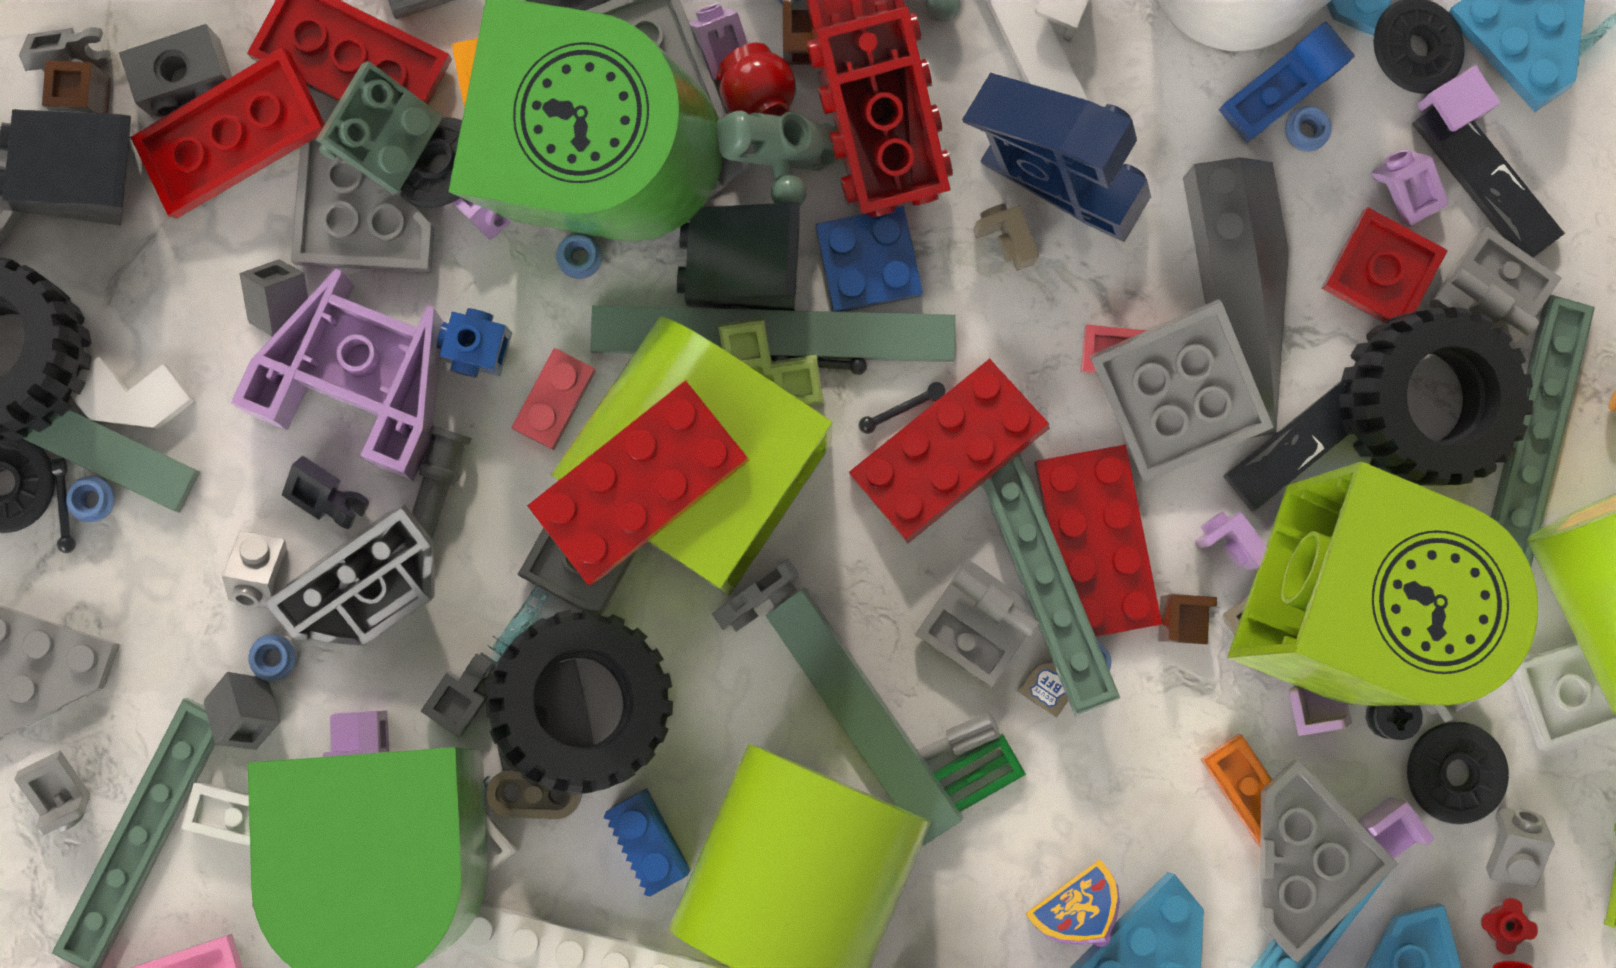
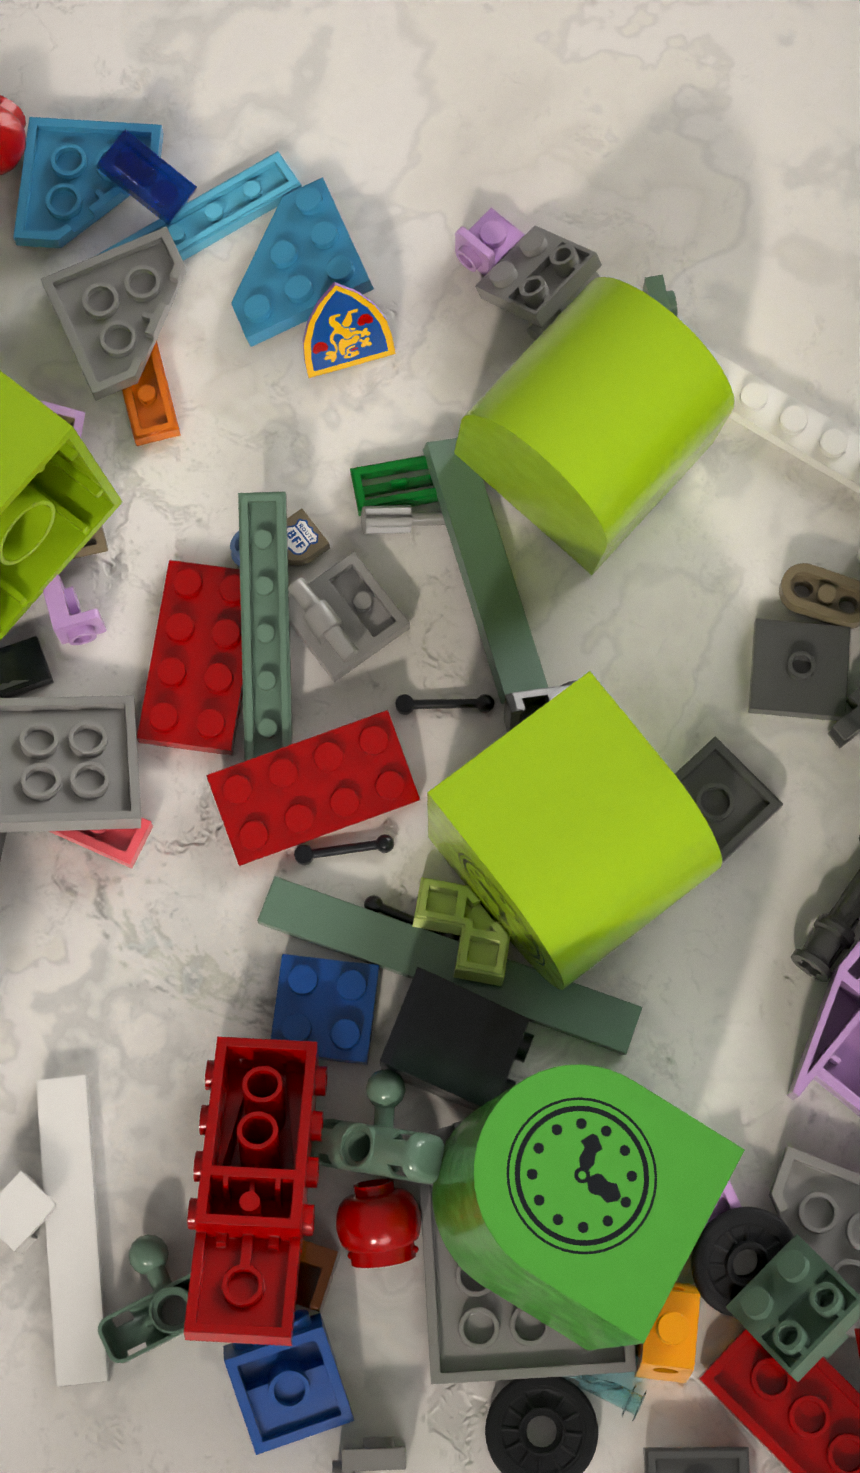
camera: 155 degrees left, 10 degrees down
(485, 354) = (743, 1051): blue brick -> none
(520, 621) = (797, 758): clear light blue piece -> none
(553, 399) = (694, 972): coral plate -> none
(638, 483) = (638, 792): red plate -> none
(642, 690) = (744, 594): black tyre -> none
(647, 842) = (730, 516): blue brick -> none
(717, 34) = (400, 1300): lavender bracket -> none
(892, 561) = (406, 704): none -> black hinge
(1016, 240) = (167, 975): dark tan bracket -> none
(1062, 151) = (93, 1034): dark blue wedge -> none
(1185, 618) = (145, 558): reddish brown panel -> none
(1396, 826) = (31, 317): lavender panel -> none

